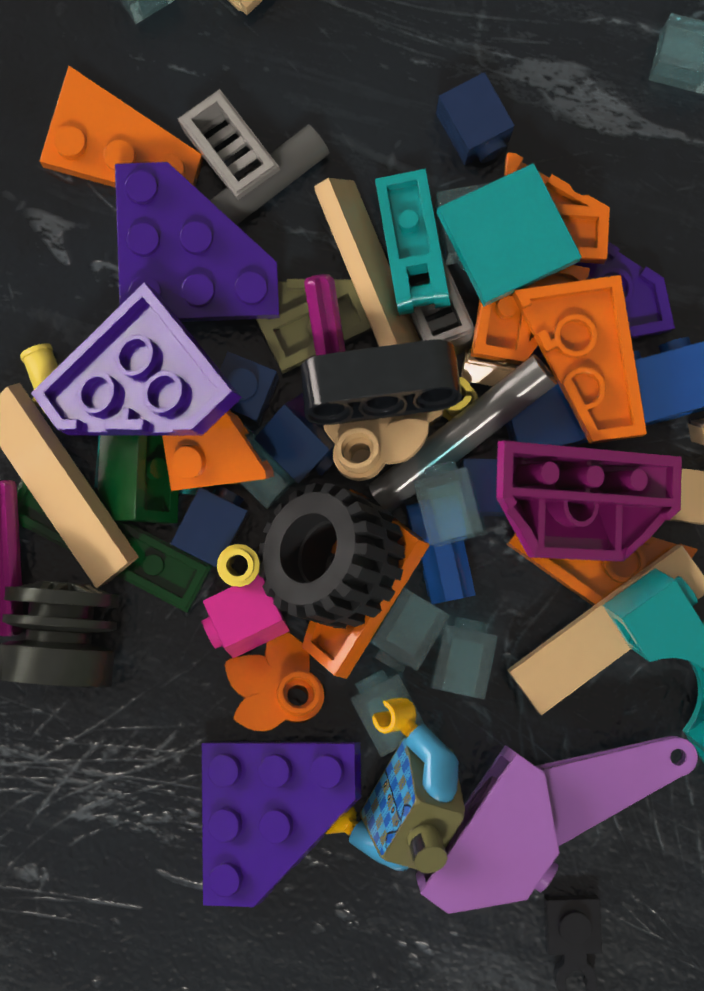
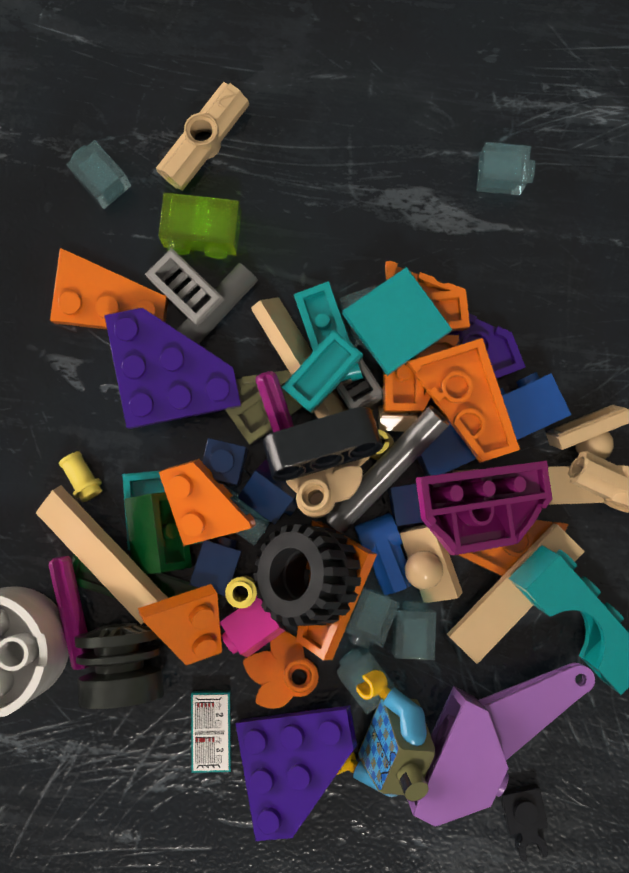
camera: 10 degrees left, 0 degrees up
(137, 377) = (145, 469): plate -> none
(160, 595) = (187, 623): none -> orange wing
(167, 749) = (211, 731): none -> tile
(263, 64) = (200, 225): none -> clear neon green brick
(397, 286) = (322, 371): none -> teal tile
(449, 504) = (386, 524): clear light blue brick -> none
(475, 120) = (358, 240): dark blue brick -> none
(500, 575) = (429, 565): none -> tan tile

